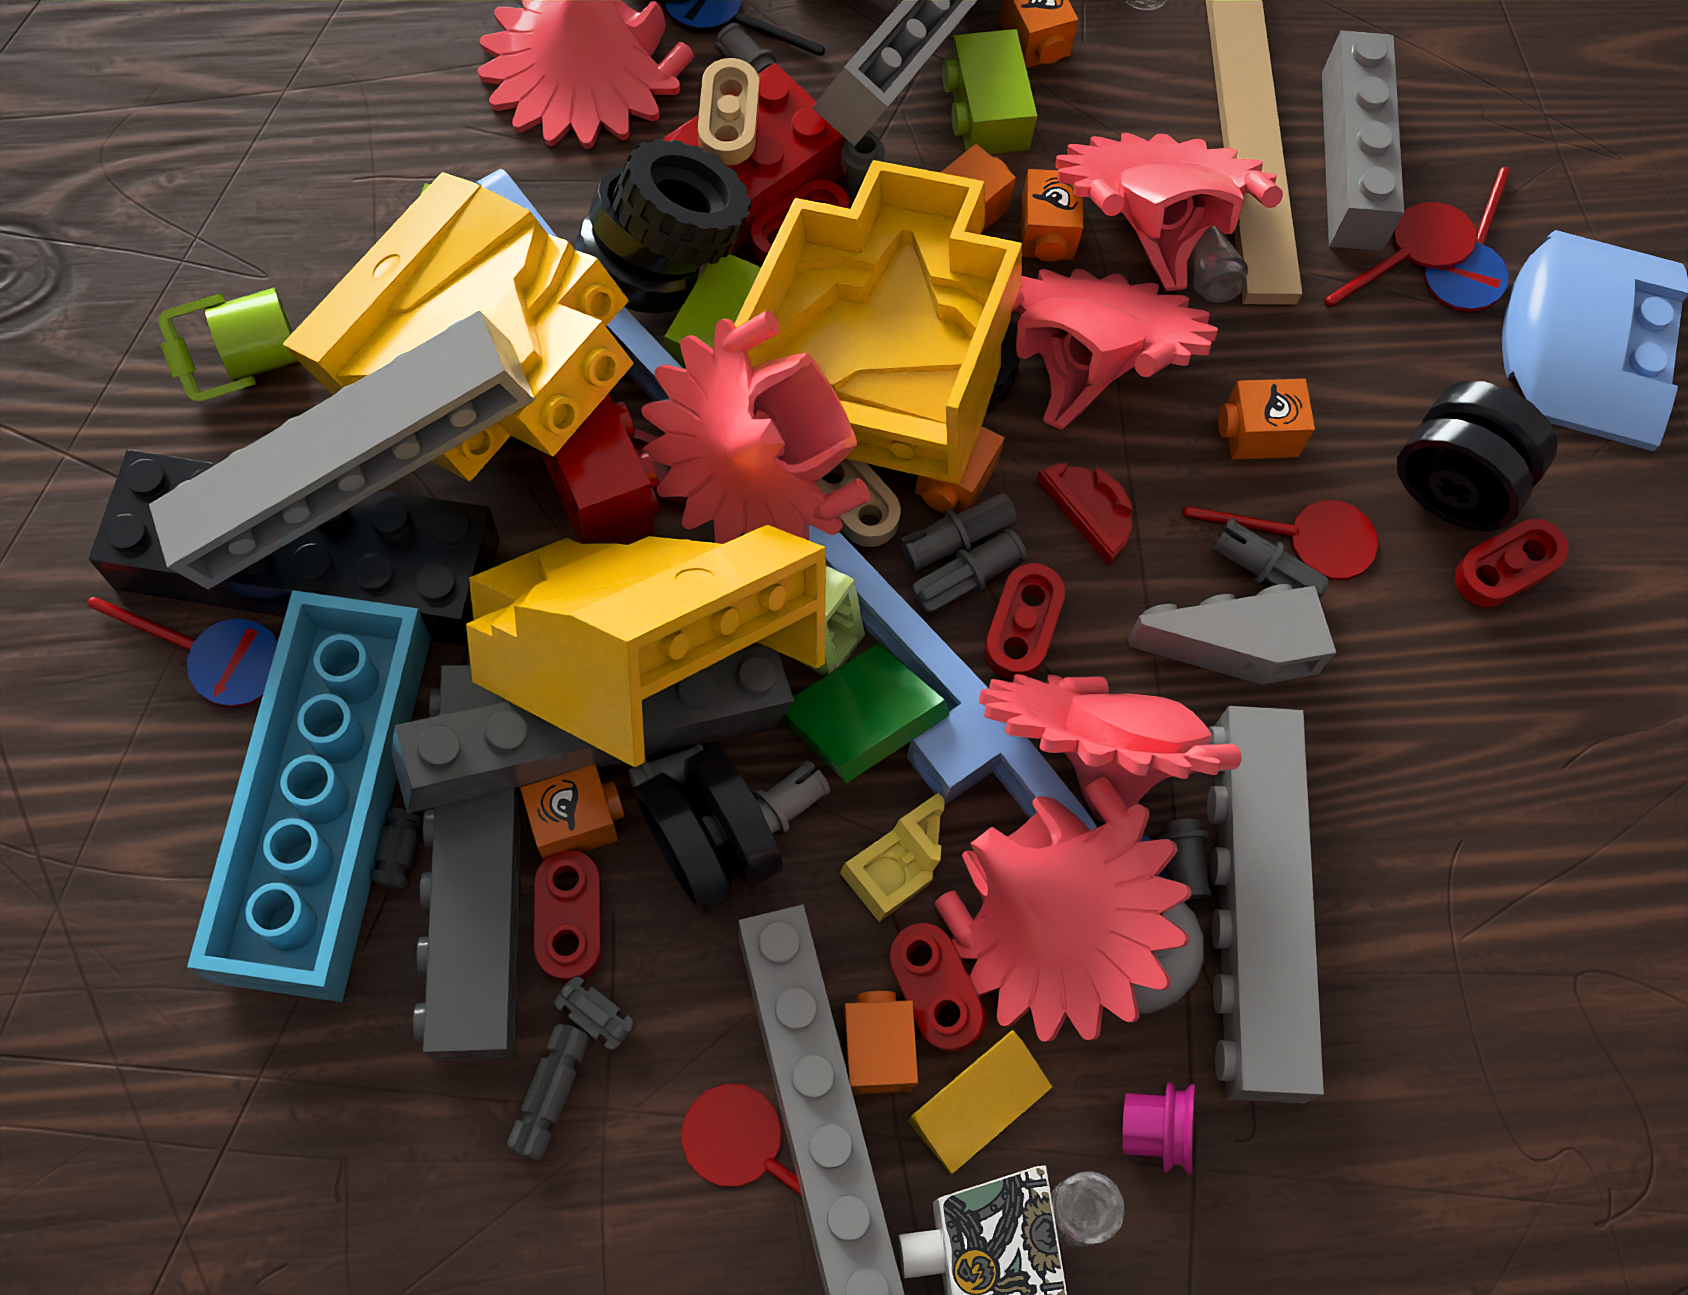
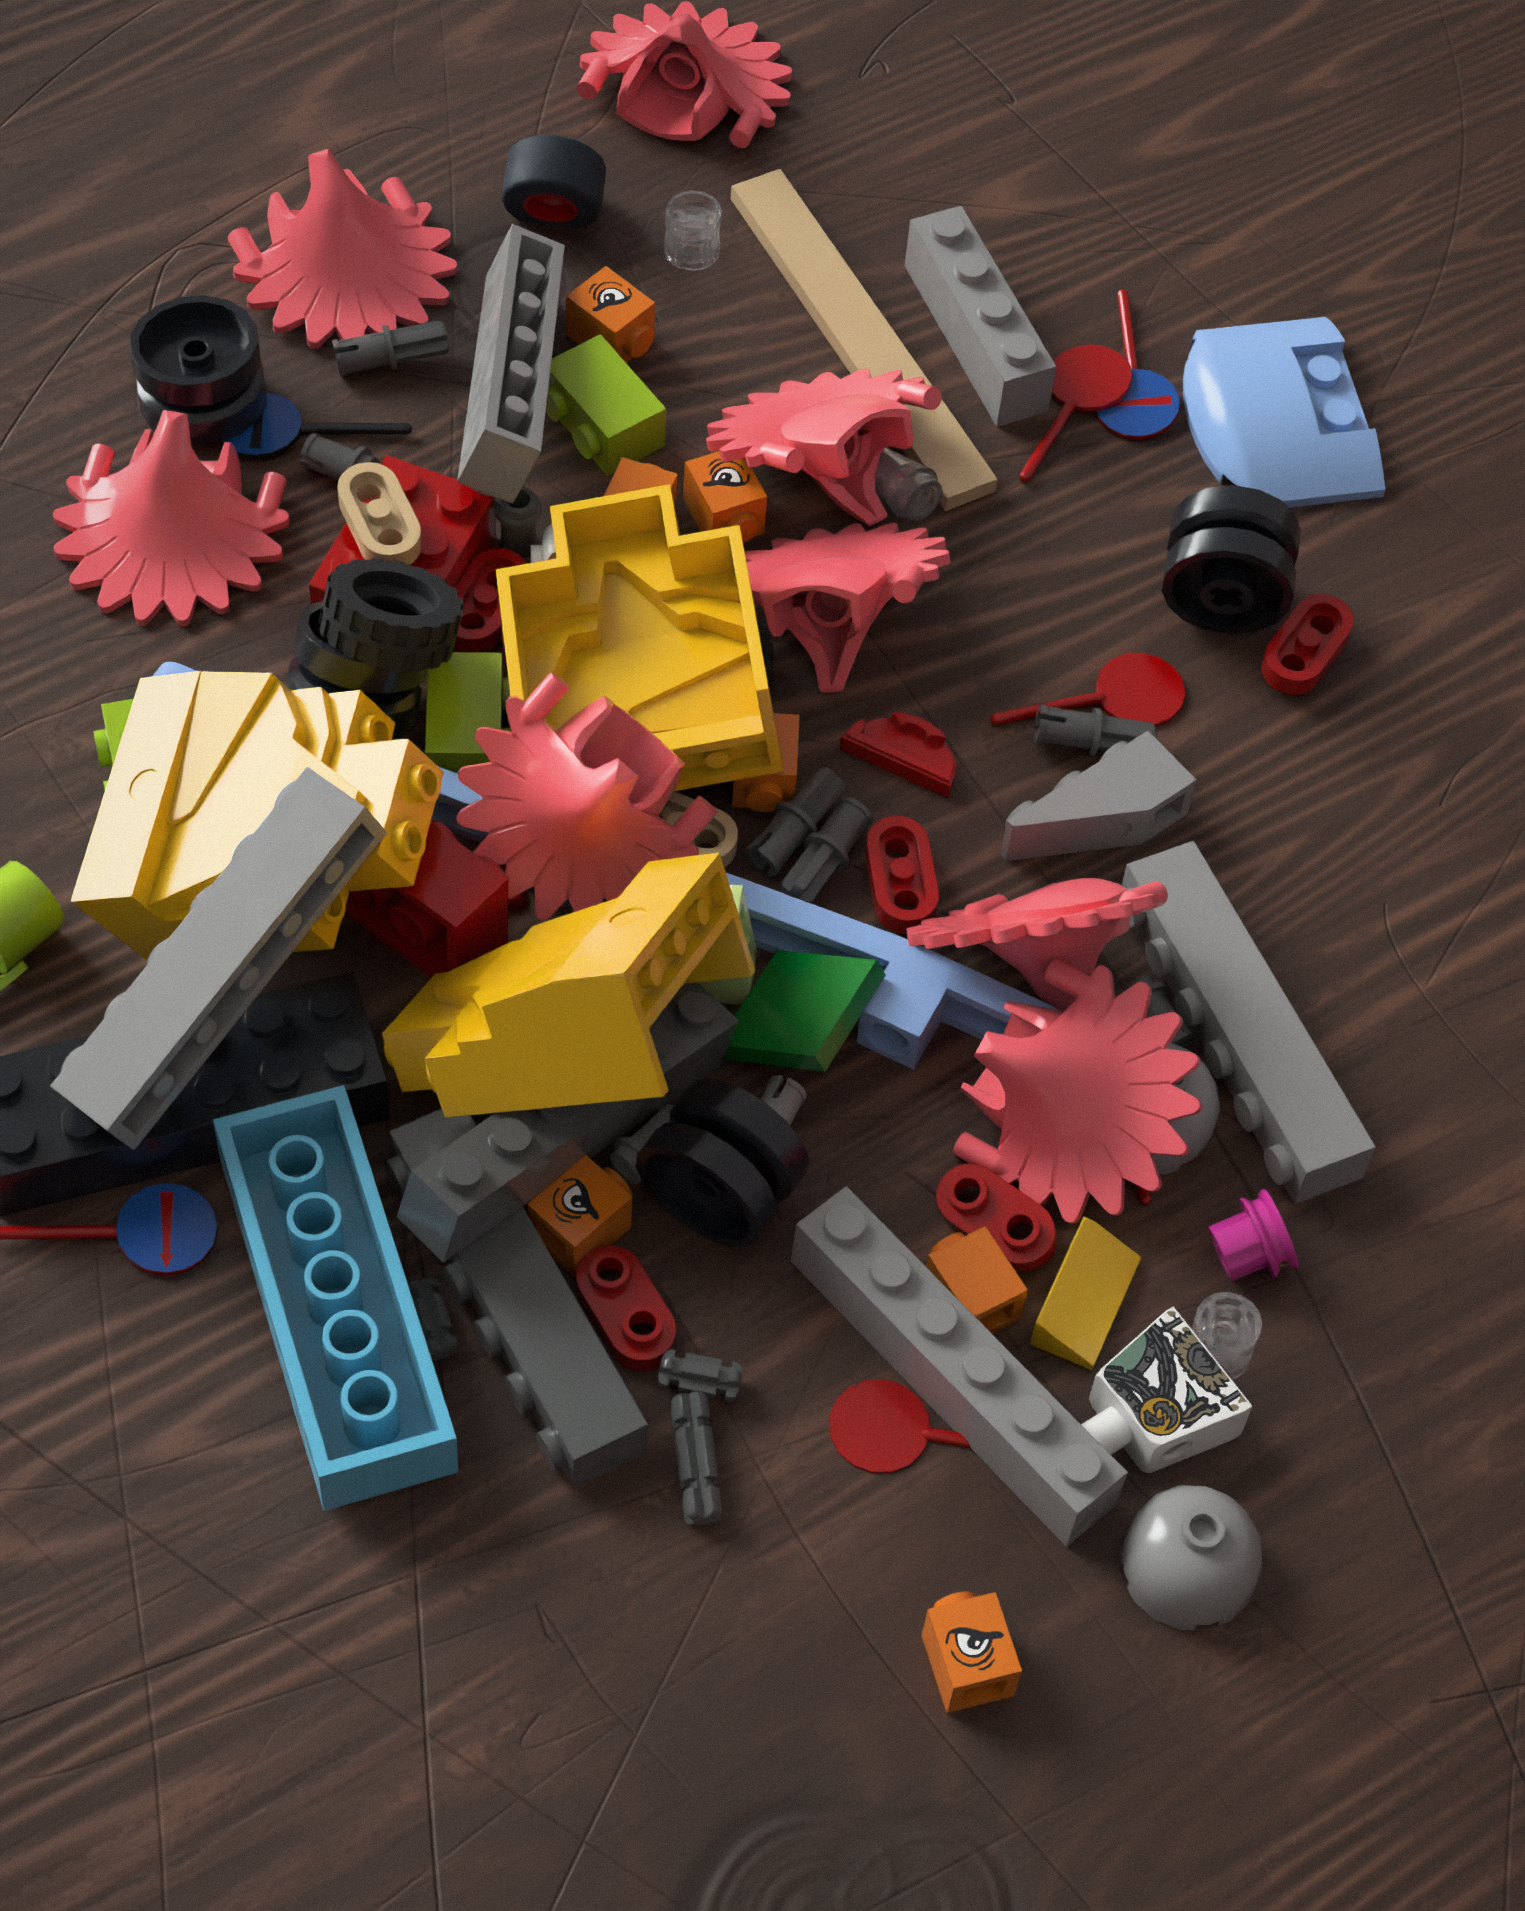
camera: 25 degrees left, 10 degrees down
(899, 862) = (902, 1130): light yellow slope -> none
(1267, 419) = (1026, 604): orange brick -> none

